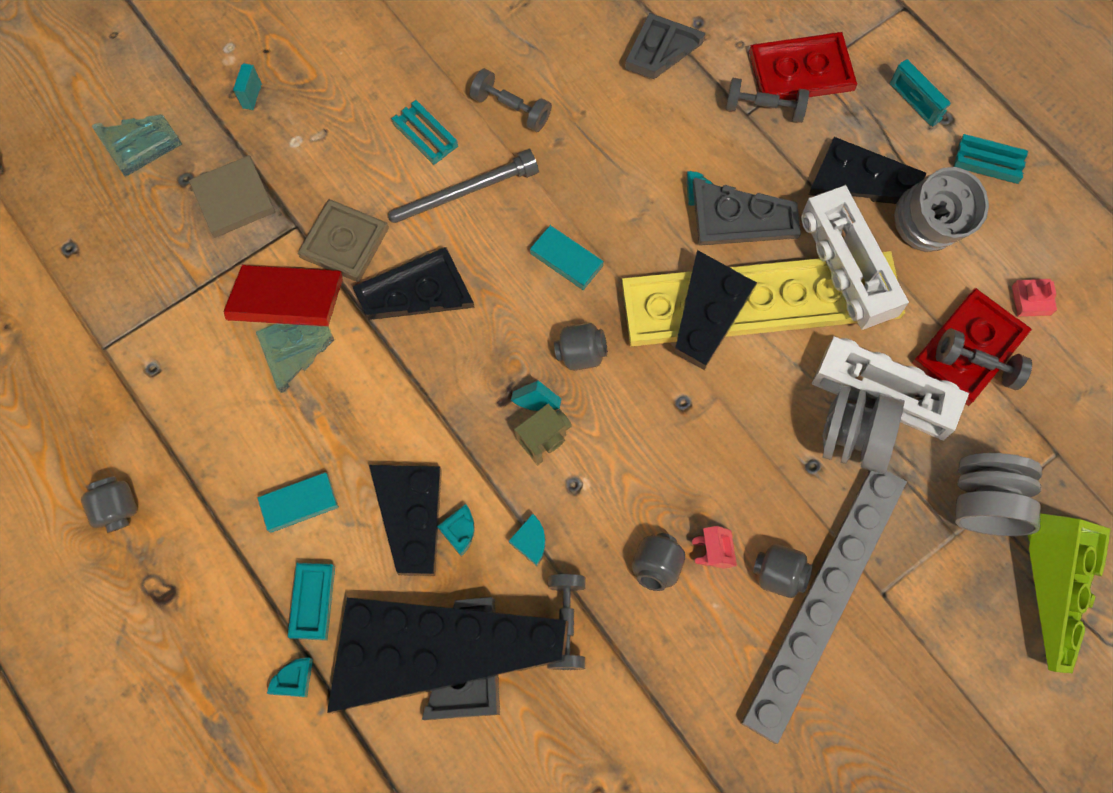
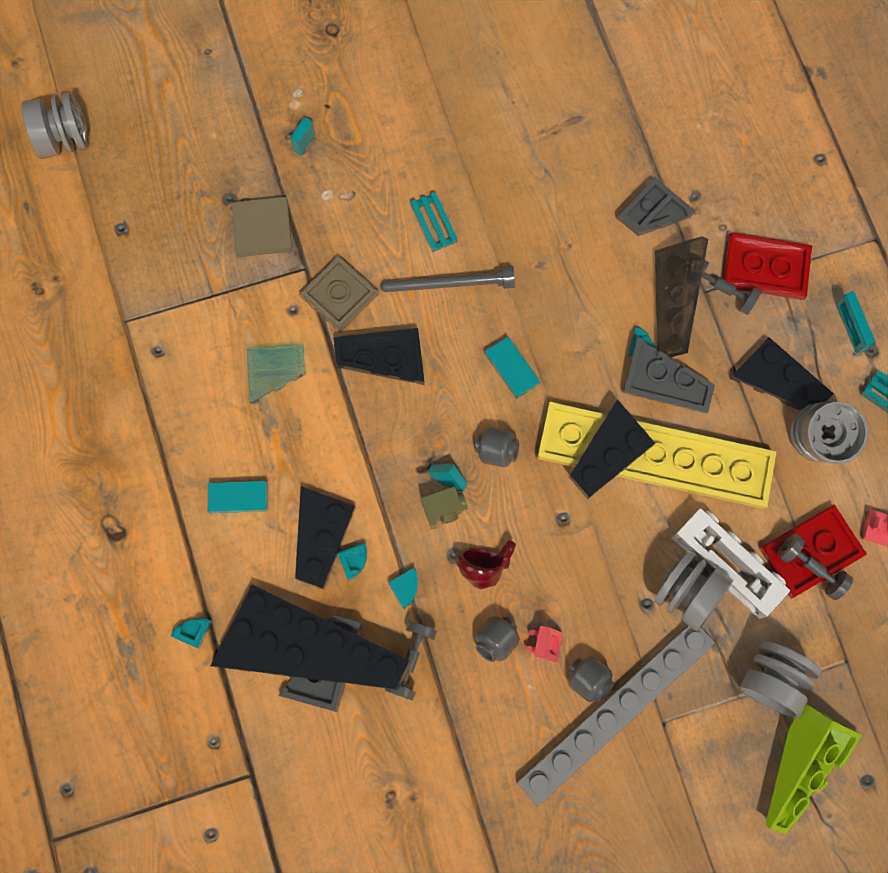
camera: 15 degrees right, 5 degrees up
(109, 504) = (95, 451): dark grey head -> none
(137, 141) = (200, 155): clear light blue wing -> none
(284, 295) = (277, 326): red tile -> none
(311, 601) = (224, 577): teal tile -> none
(483, 86) = (493, 198): dark grey wheel -> none
(614, 485) = (484, 566): none -> dark red hat
(718, 118) = (677, 291): none -> clear smoke wing
(853, 258) = (752, 485): white brick -> none

